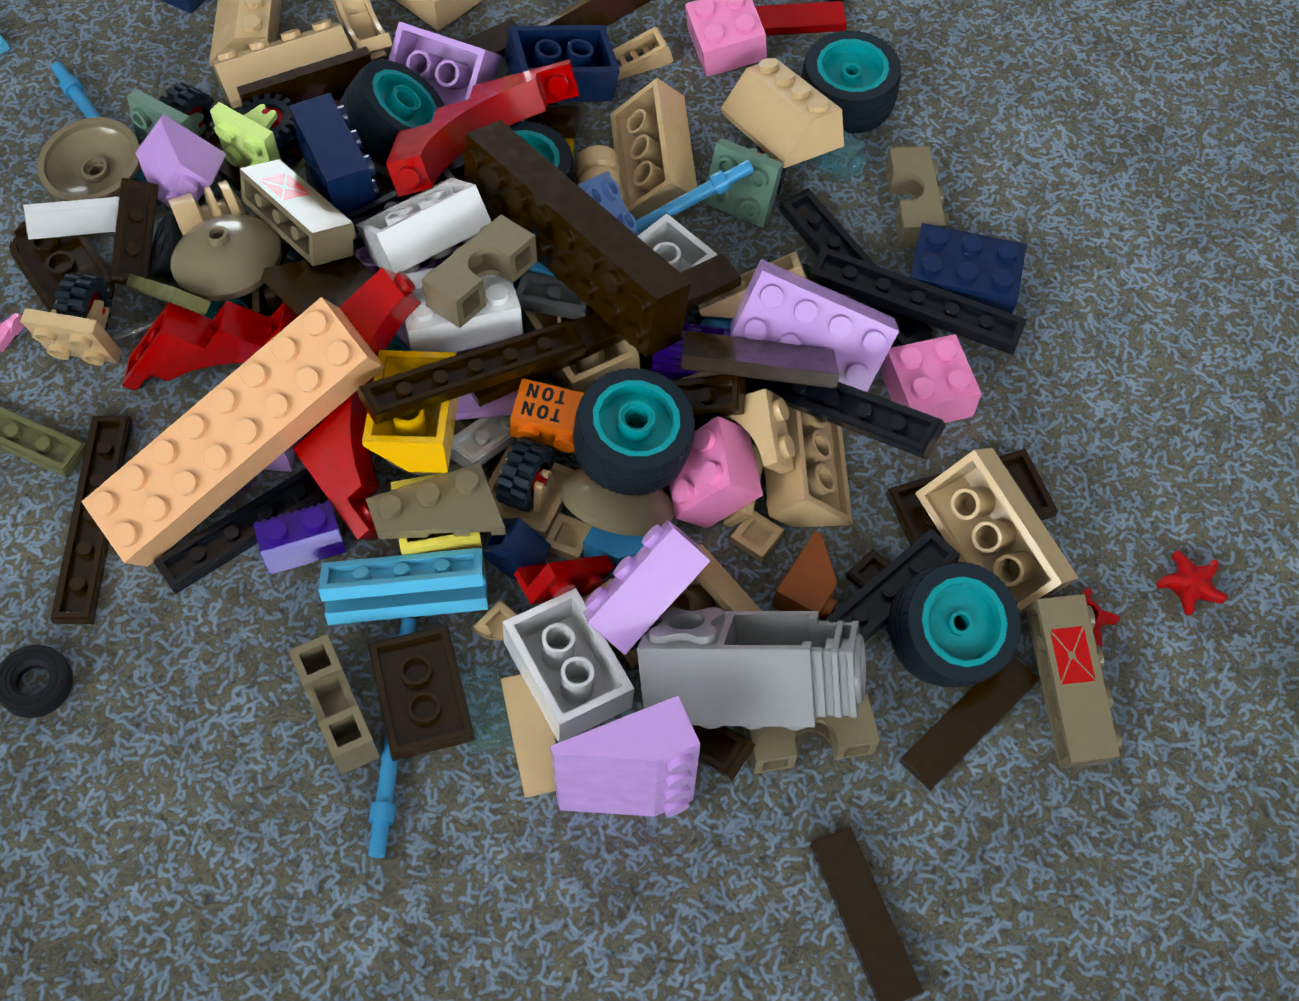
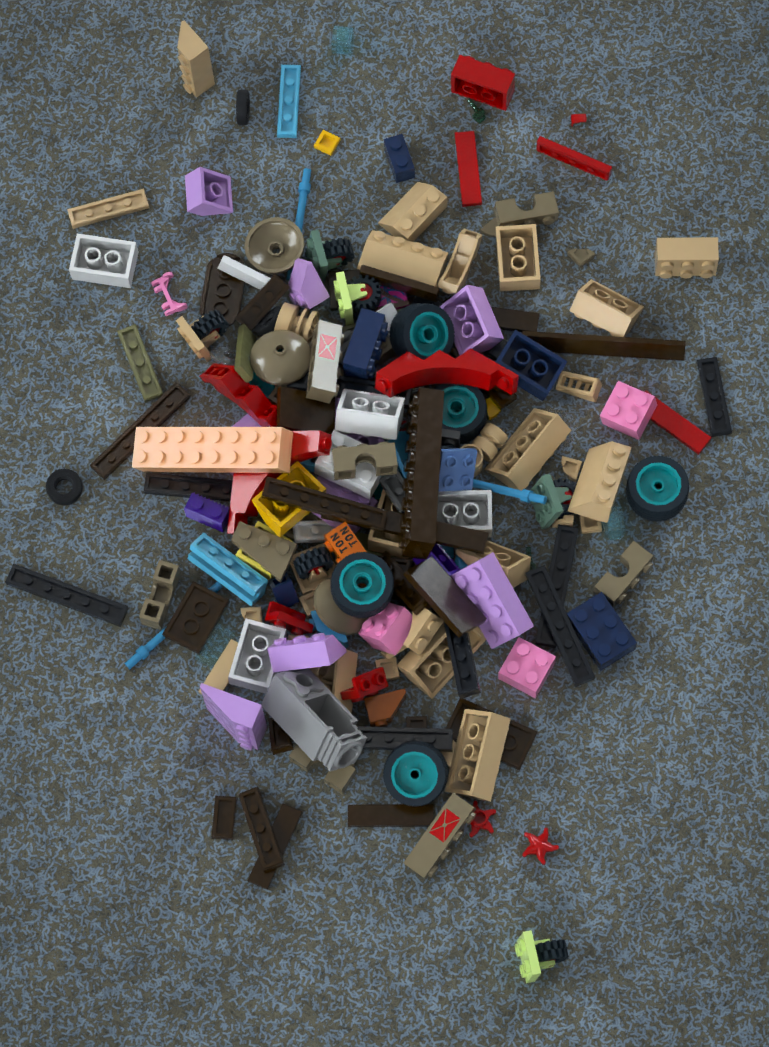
camera: 50 degrees right, 10 degrees up
(57, 27) = (327, 142): none -> yellow tile
(174, 833) = (67, 595): none -> black plate
(712, 137) = (571, 467): none -> tan tile
(748, 946) = (224, 817): none -> dark brown tile
(767, 570) = (366, 685): none -> red bracket
(789, 188) = (566, 521): none -> tan tile
(810, 175) = (589, 525): none -> tan tile
(825, 909) = (261, 829): none -> dark brown tile

